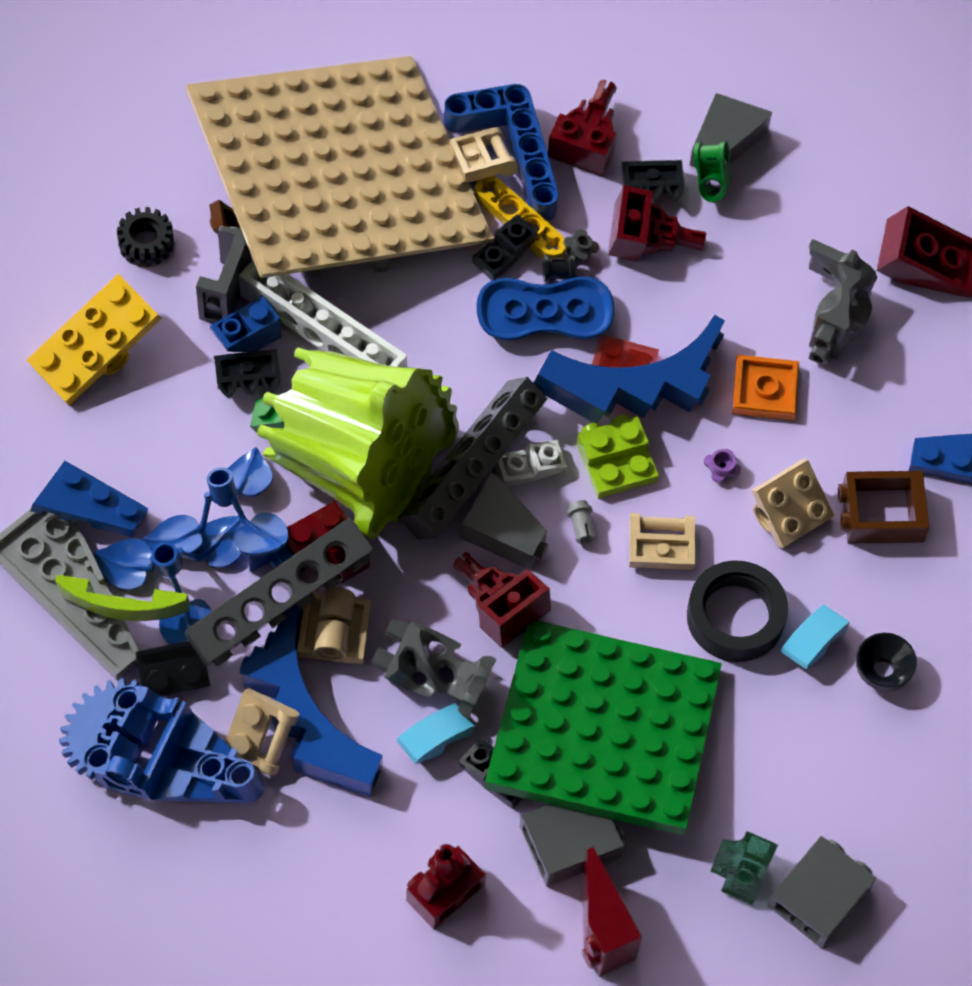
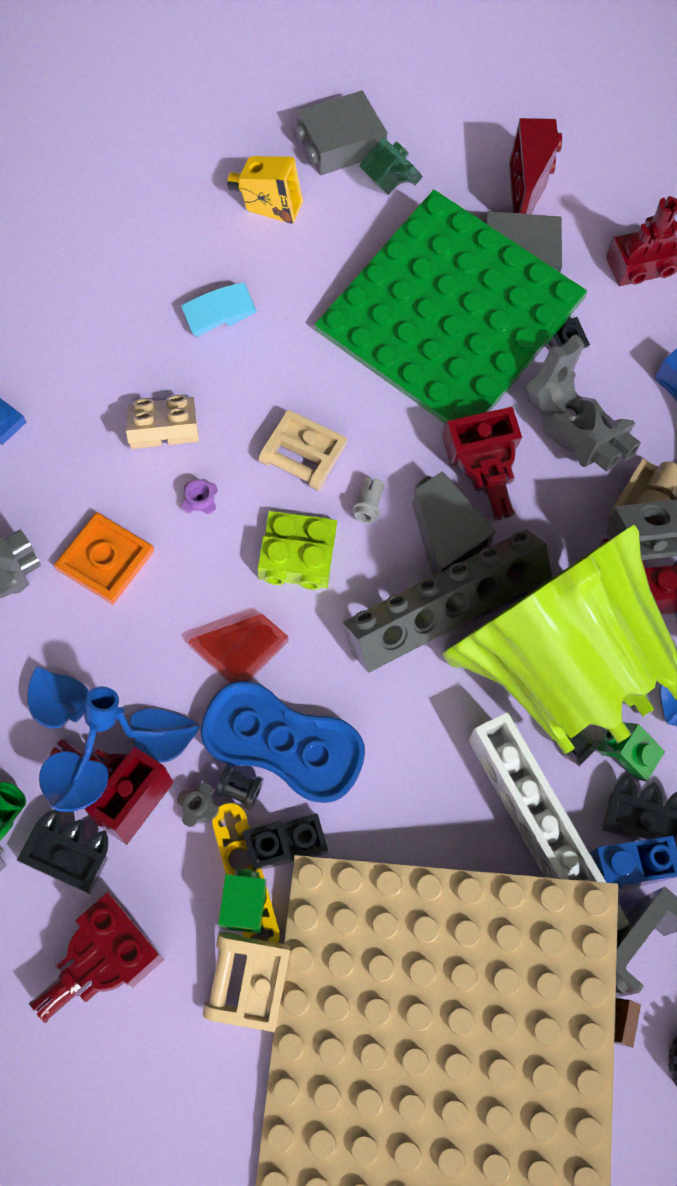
camera: 155 degrees left, 5 degrees up
(432, 733) = (604, 371): medium azure slope -> none
(511, 188) = (243, 902): none -> green brick
(528, 139) = (190, 985): blue beam -> none
(532, 464) = (379, 580): white slope -> none
(597, 389) = (237, 594): blue arch -> none
(673, 201) = (74, 781): none -> blue plant
(744, 575) = (265, 325): black tyre -> none
(848, 777) = (269, 187): none -> yellow torso
(884, 531) = (51, 369): reddish brown window -> none
(888, 649) = (173, 250): black piece -> none

